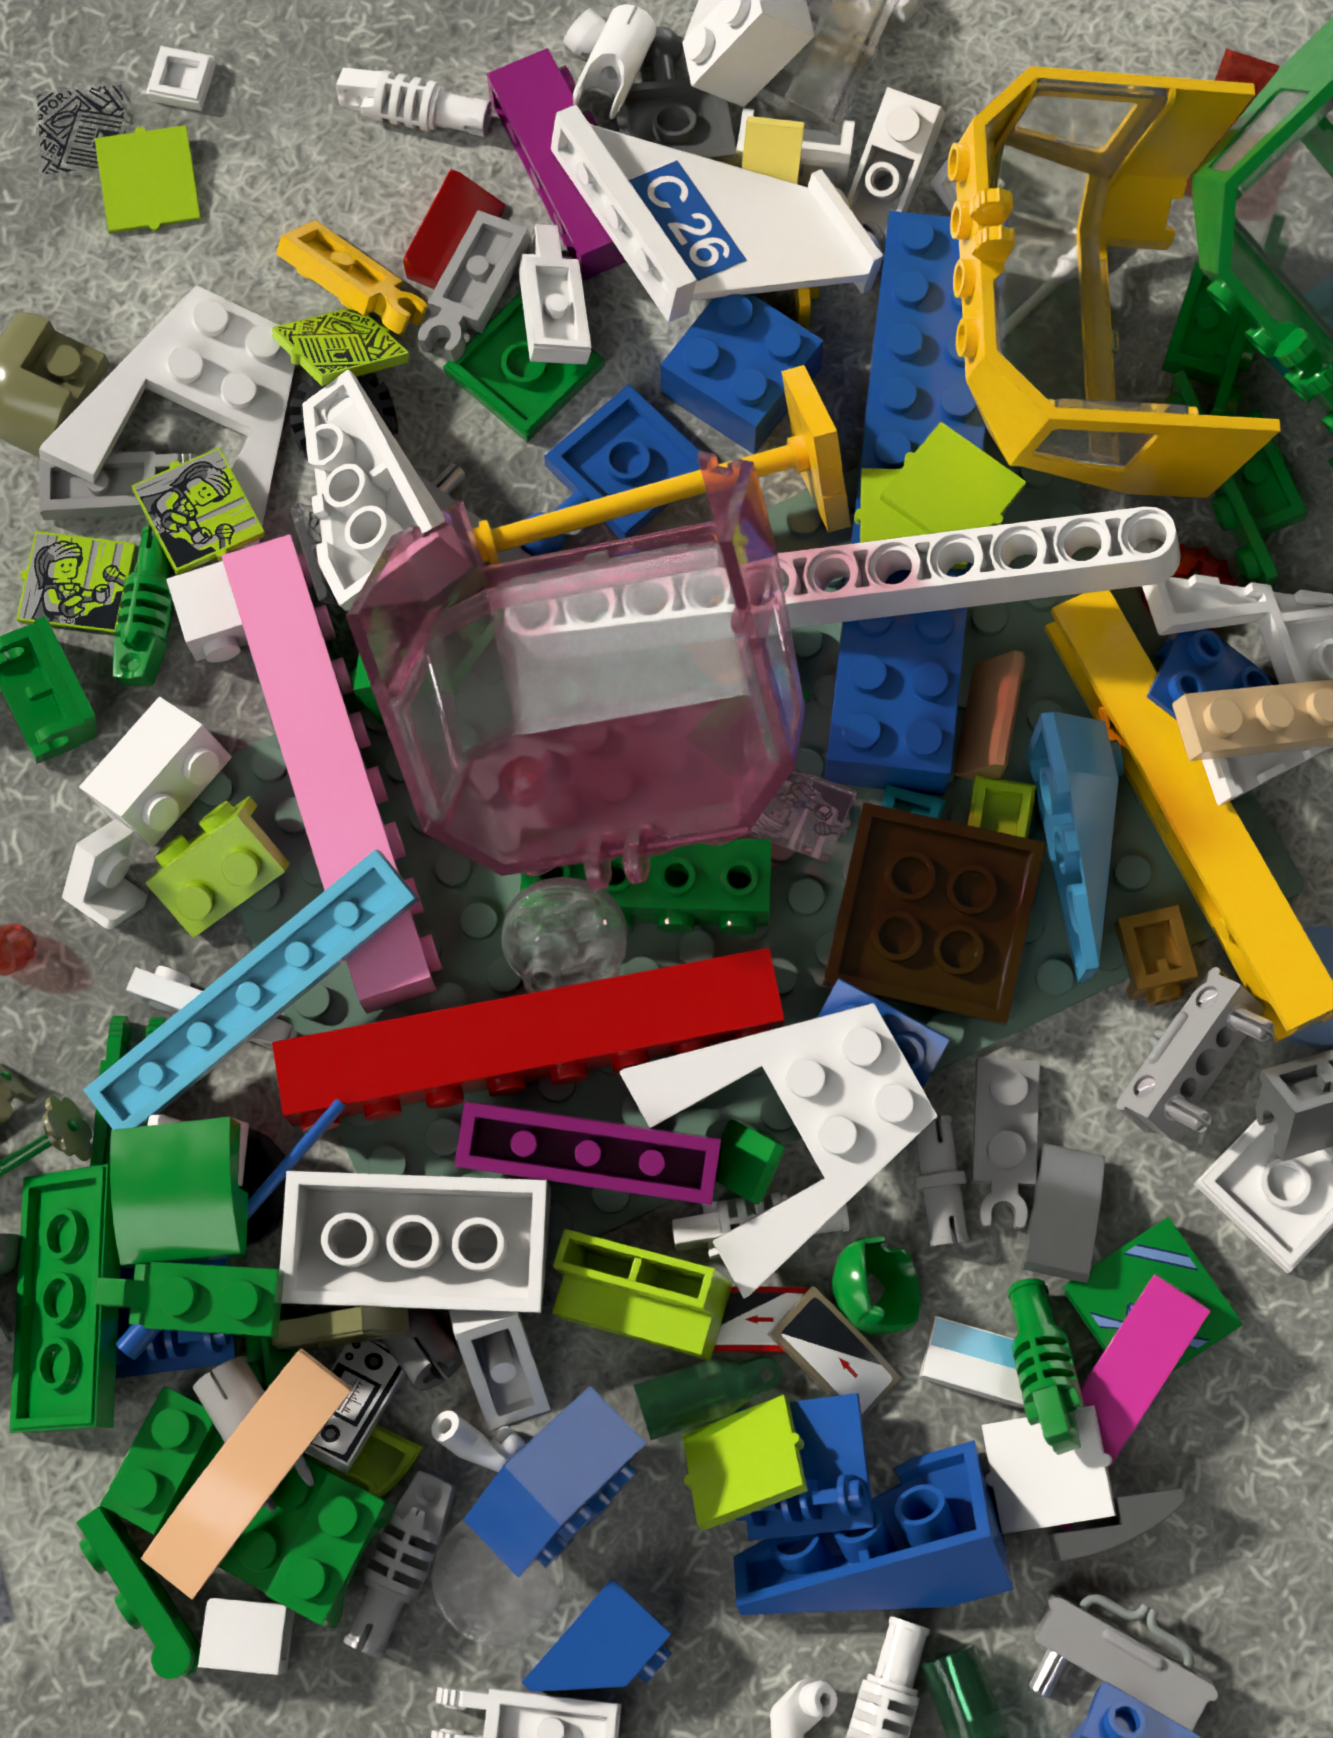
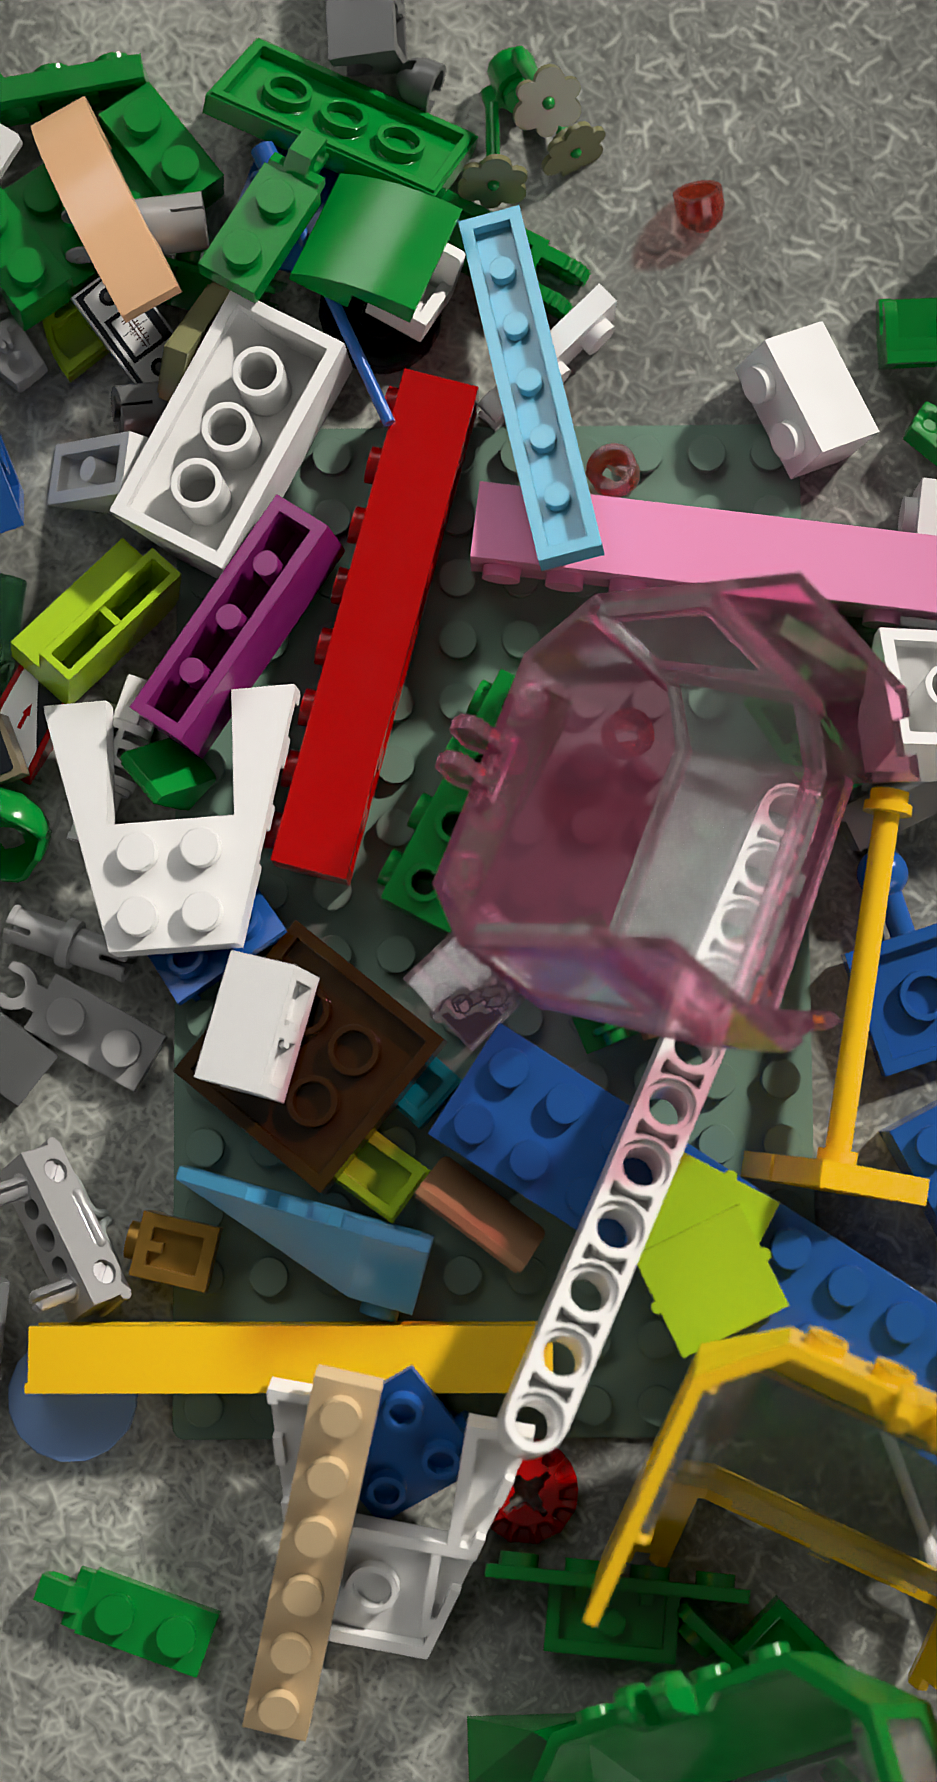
camera: 120 degrees right, 10 degrees up
(98, 873) = (720, 308): white bracket -> none
(216, 867) = (685, 416): lime bracket -> none
(282, 896) = (619, 461): none -> clear red hinge
(473, 1445) = (45, 426): white arm -> none
(563, 934) = (442, 684): clear tile -> none
(935, 959) = (257, 1026): none -> white hinge

